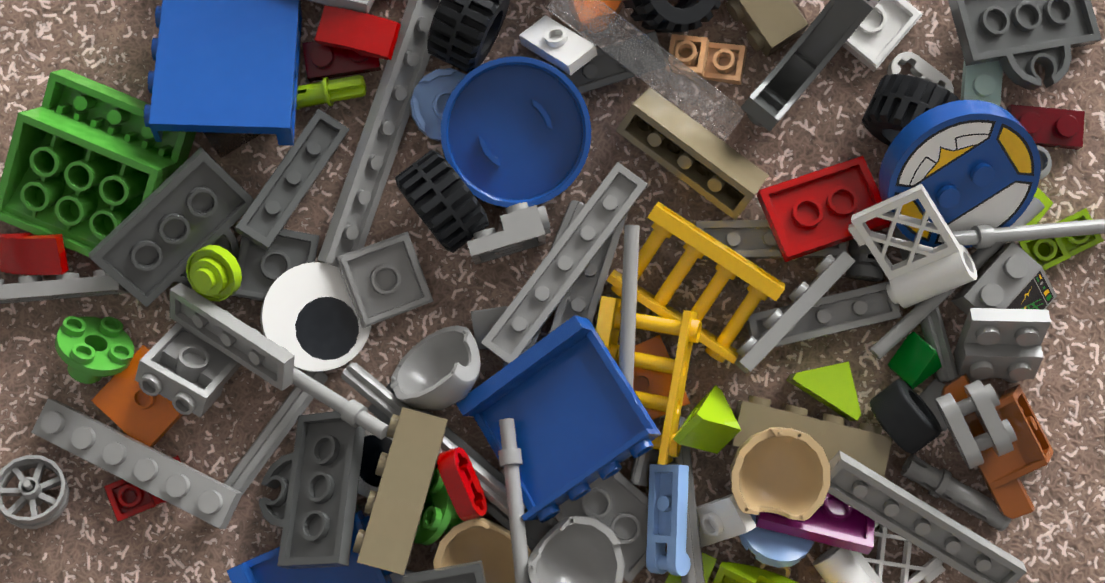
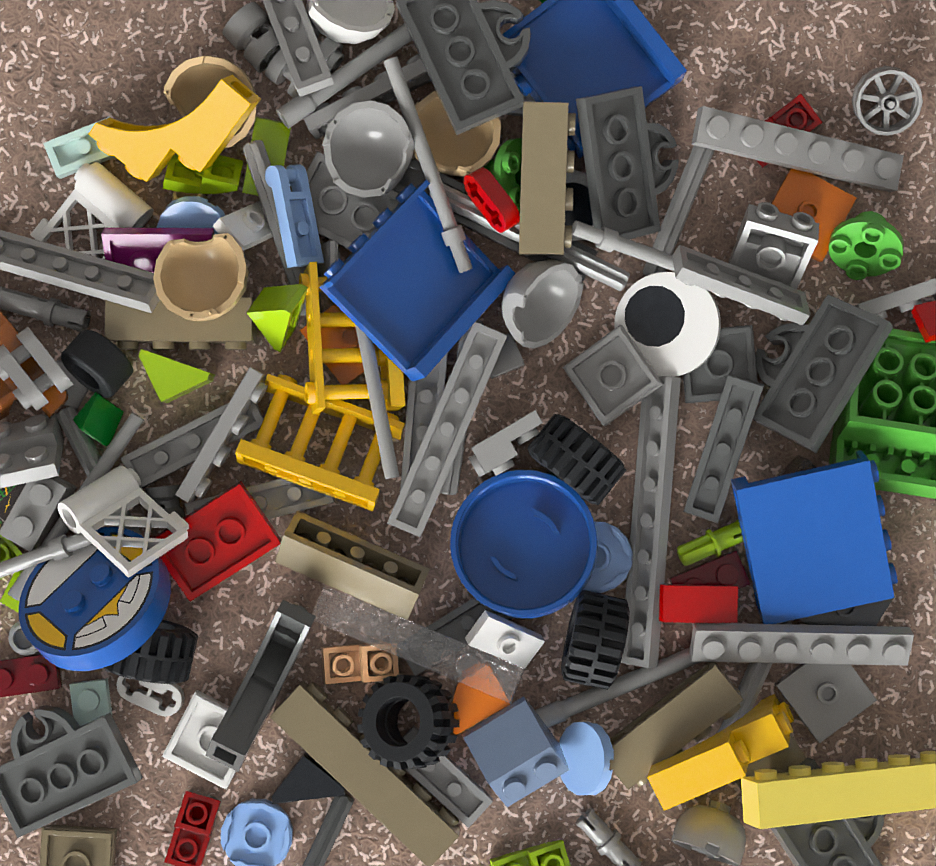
camera: 170 degrees right, 5 degrees up
(214, 273) = (772, 339): lime plate -> none

